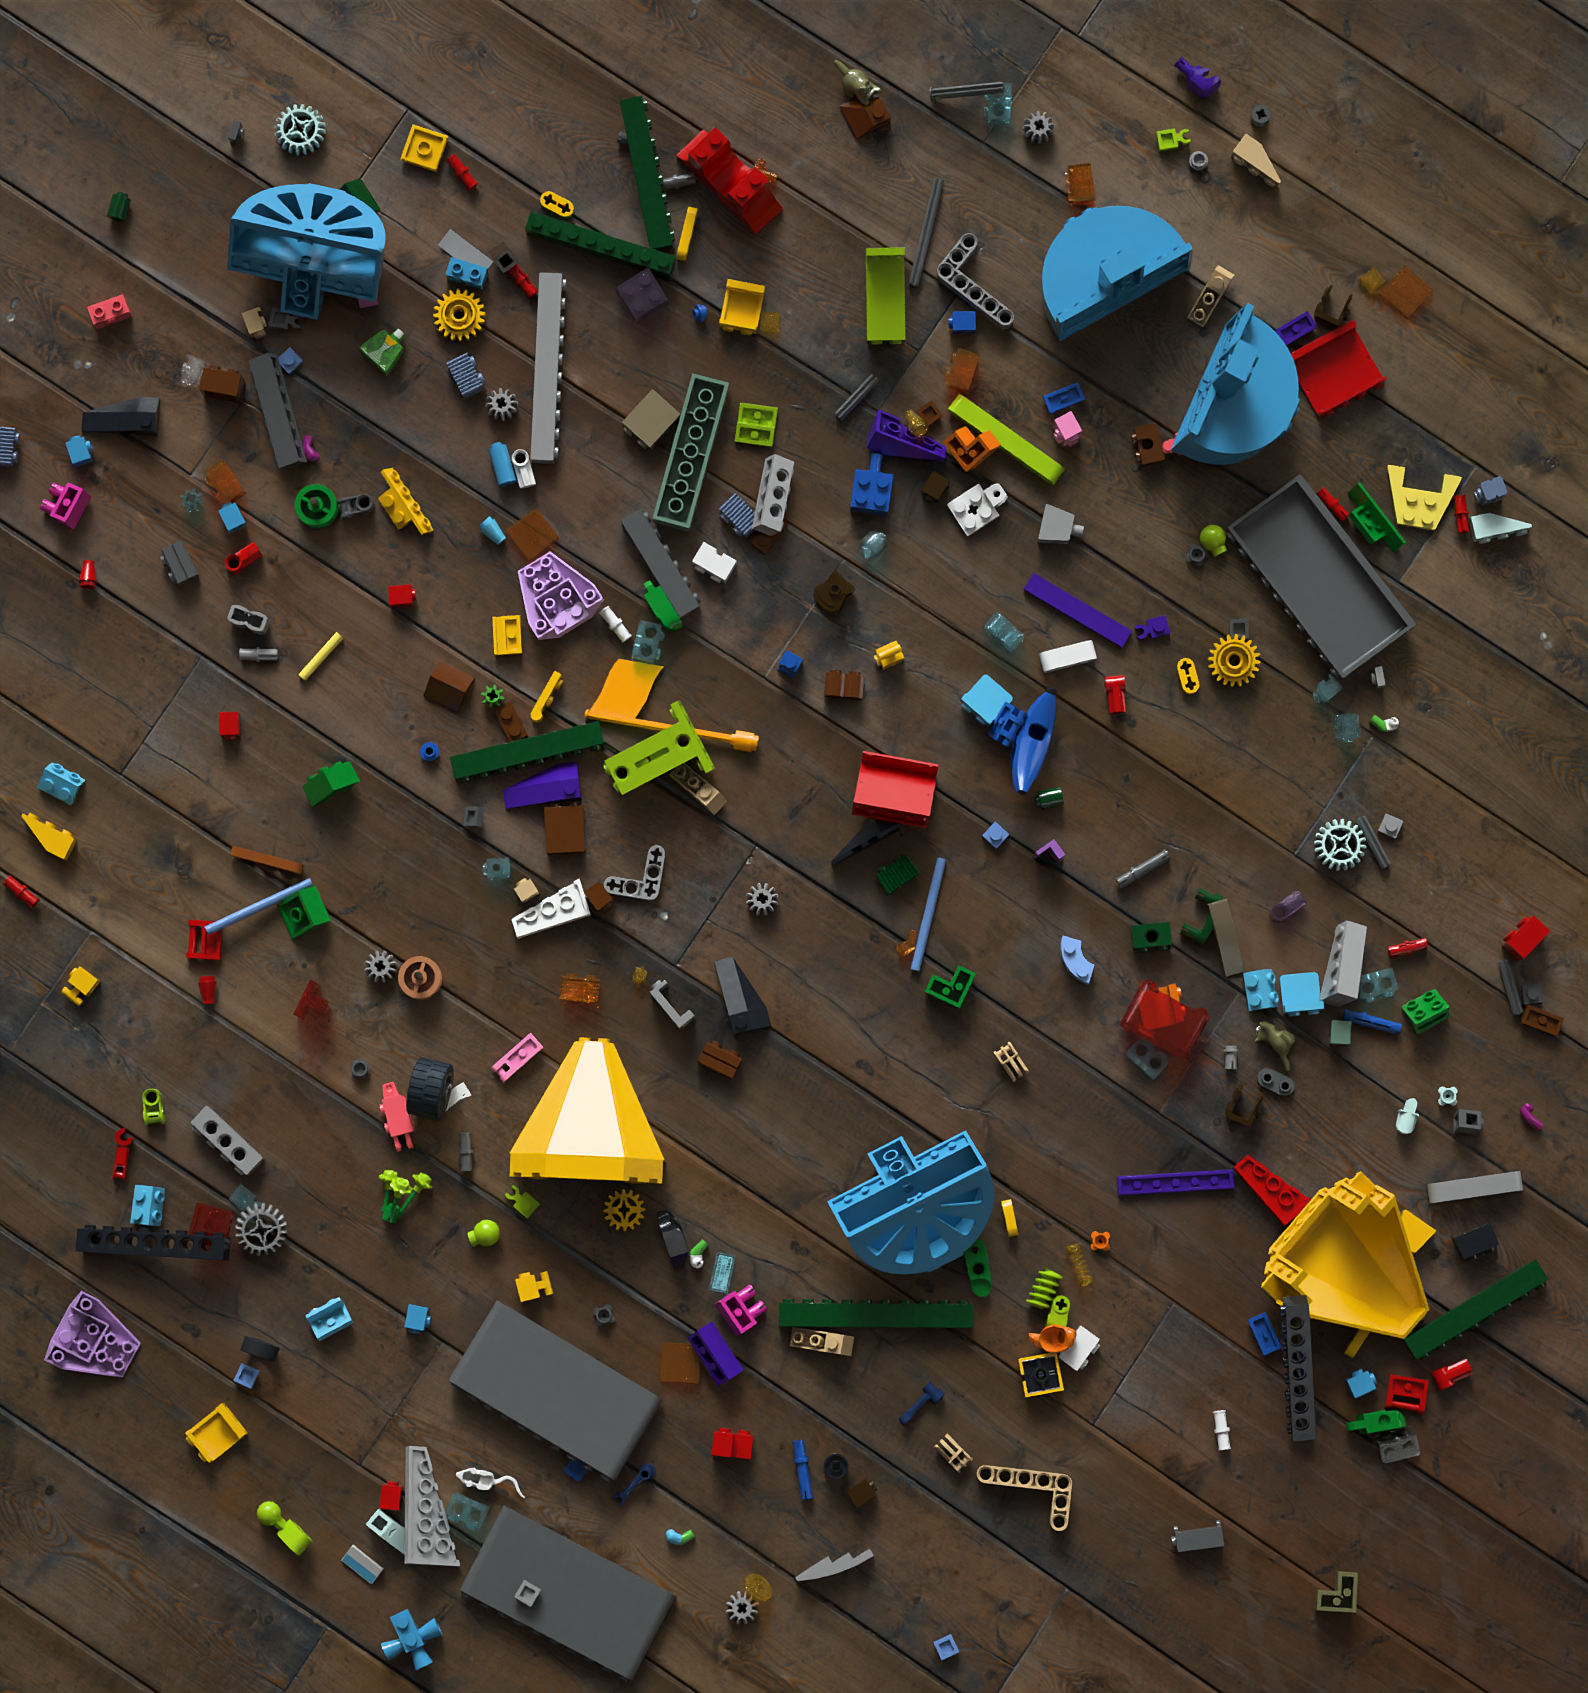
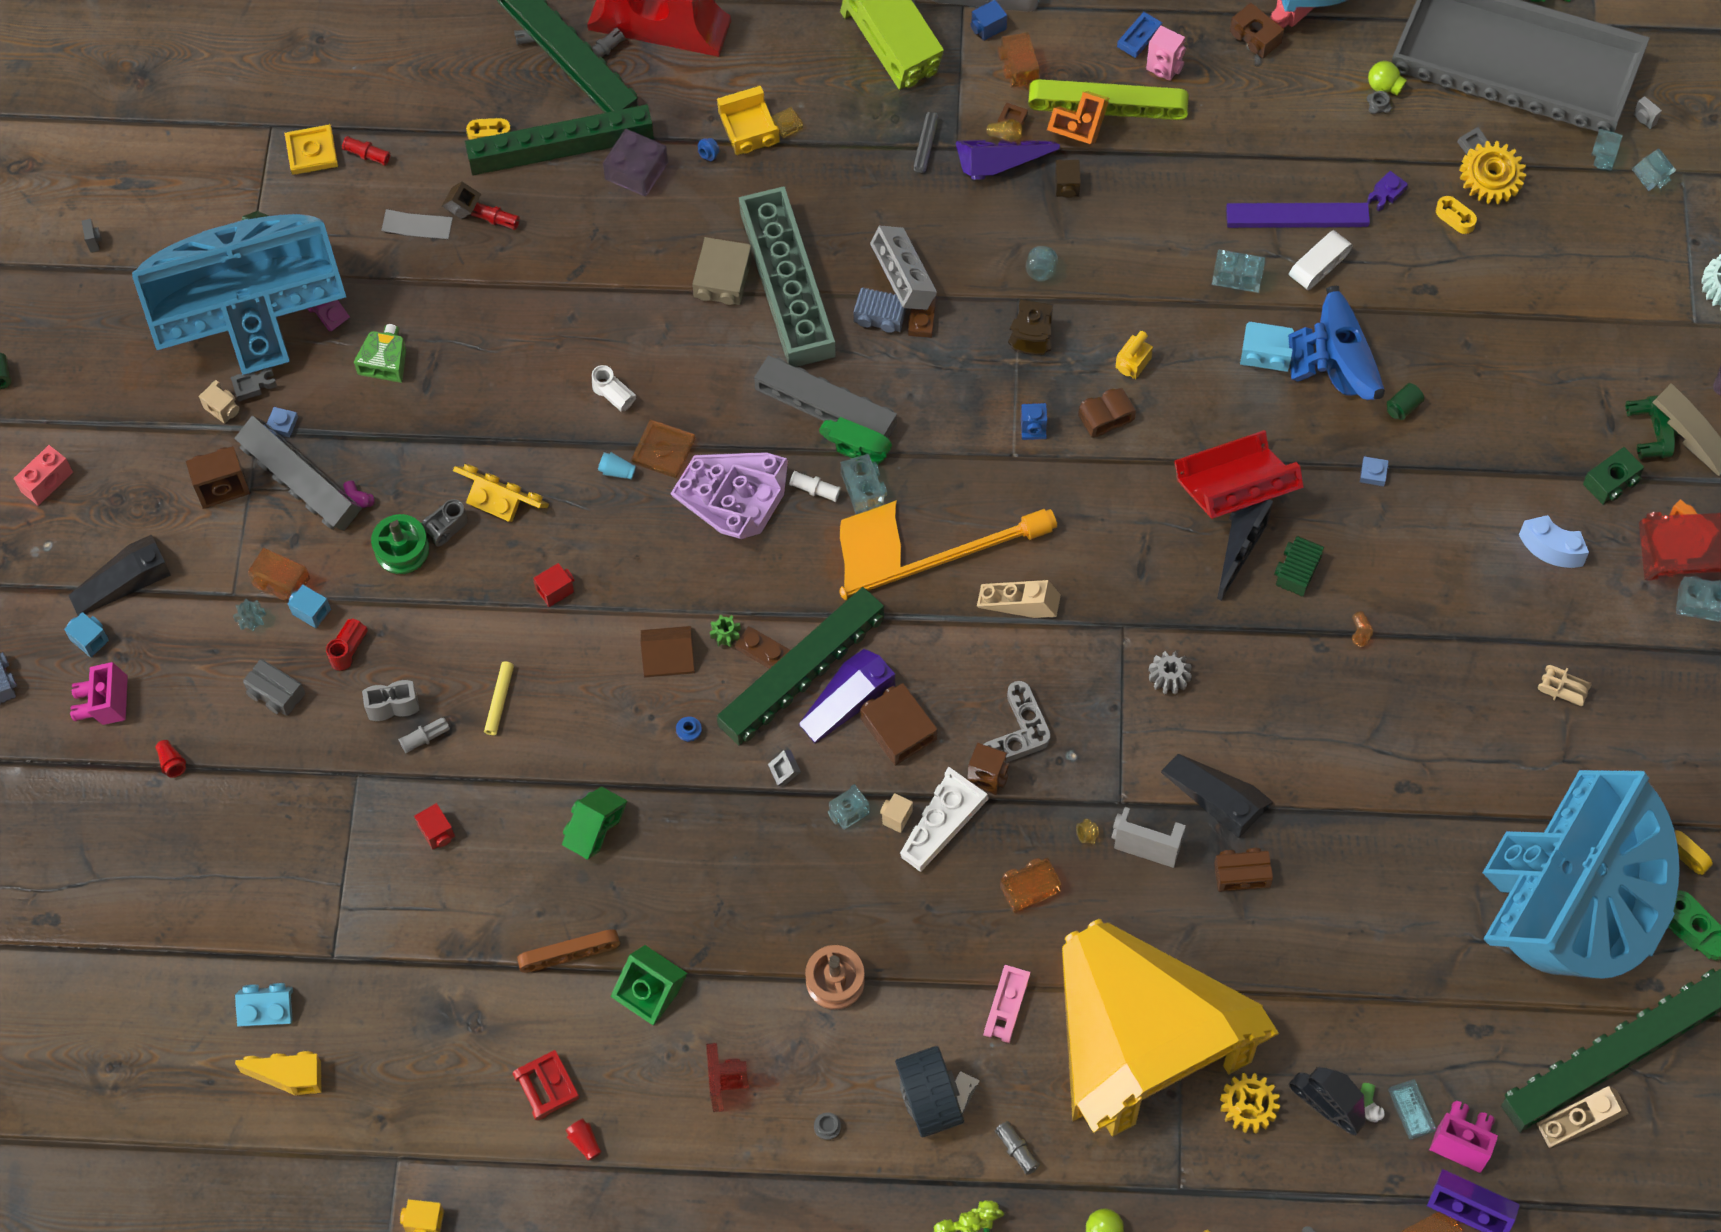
camera: 30 degrees left, 20 degrees down
(21, 892) = (283, 1158): red pin -> none
(192, 370) = (174, 484): clear brick -> none
(257, 907) = (585, 1013): medium blue piece -> none
(305, 125) = (163, 205): light aqua gear -> none
(386, 962) = (788, 988): light grey gear -> none
(398, 1119) = (908, 1152): coral hinge -> none
(454, 304) = (462, 278): yellow gear -> none
(465, 375) = (491, 333): sand blue brick -> none
(467, 273) = (430, 237): dark azure brick -> none
(494, 407) = (548, 339): light grey gear -> none
(502, 464) = (586, 397): dark azure brick -> none
(507, 635) = (701, 561): yellow plate -> none
(524, 1203) = (1127, 1167): lime plate -> none
(546, 697) = (787, 600): yellow plate -> none
(547, 368) = (577, 282): light grey brick -> none
(658, 754) = (955, 578): lime brick -> none
(687, 233) = (645, 85): yellow beam -> none
(710, 562) = (883, 369): white brick -> none
(756, 424) = (837, 220): lime slope -> none
(872, 489) = (1003, 213): blue brick -> none
(928, 914) = (1362, 589): medium blue piece -> none
(951, 992) = (1447, 647): green brick -> none
(986, 507) = (1130, 164): white plate -> none
(1053, 848) = (1450, 446): medium lavender panel -> none
(1058, 526) = (1219, 148): light grey torso -> none
(1115, 690) = (1393, 263): red piece -> none
(1142, 869) = (1549, 425): dark grey pin -> none
(1384, 725) = (1688, 153): arm -> none

